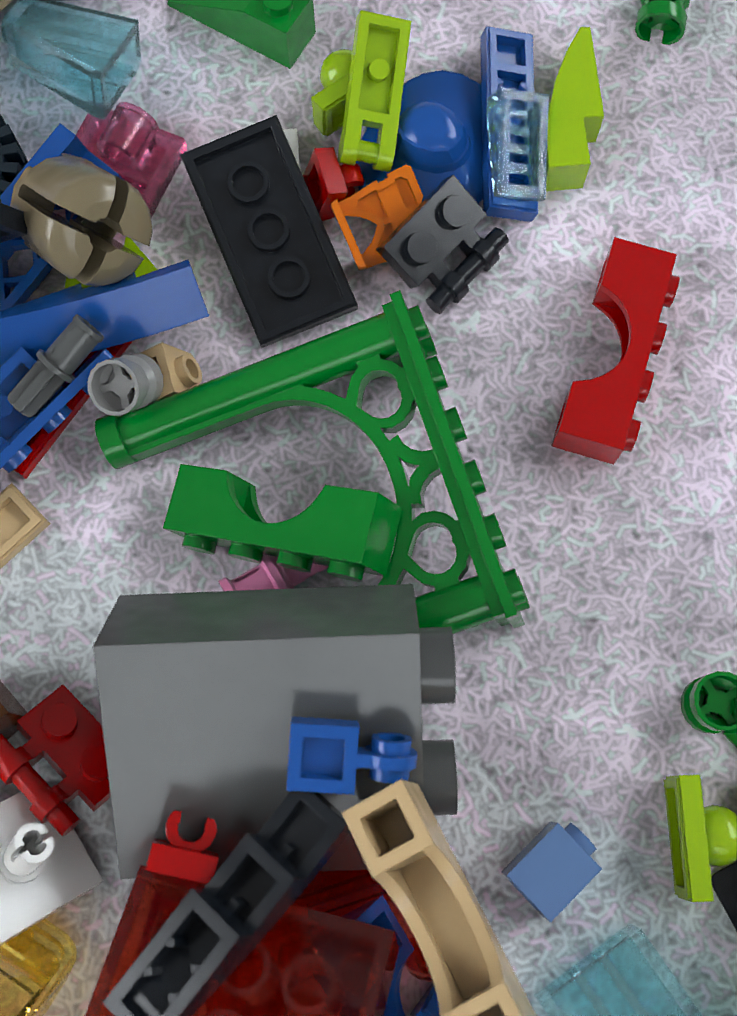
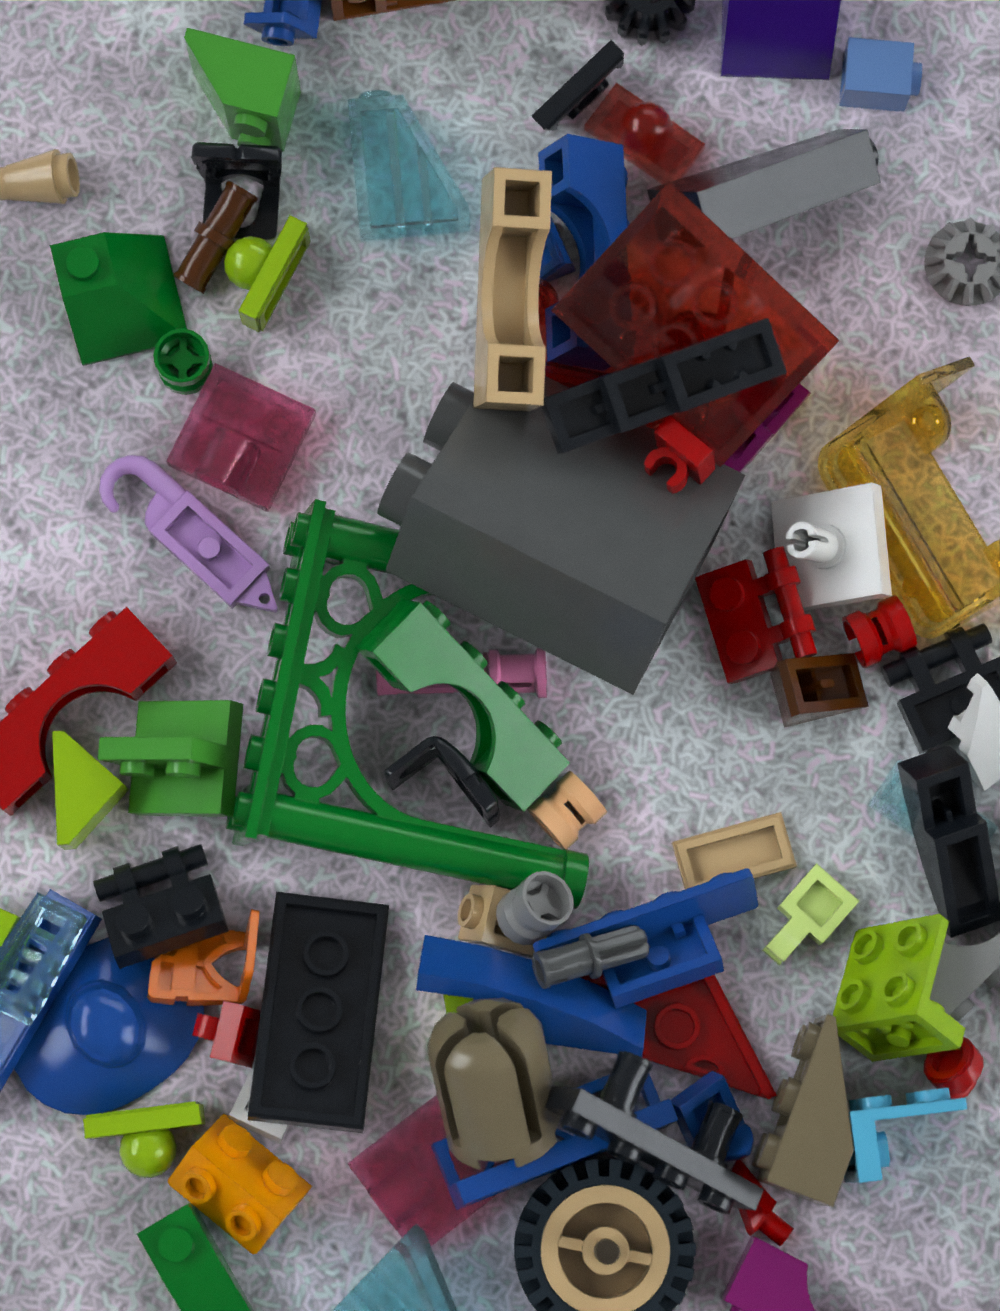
camera: 155 degrees left, 5 degrees up
(147, 493) = (558, 819): none -> light nougat wheel
(257, 471) = (458, 767): none -> black piece
(258, 84) = (238, 1183): none -> light orange bracket
(327, 754) = (528, 455): blue plate -> none
(375, 89) = (137, 1087): lime plate -> none
(499, 358) = (180, 758): none -> bright green bracket
(553, 868) = (399, 310): medium blue brick -> none
(565, 299) = (82, 791): none -> lime slope
(605, 554) = (195, 535): none -> lavender plate
(620, 664) = (241, 437): none -> clear pink plate

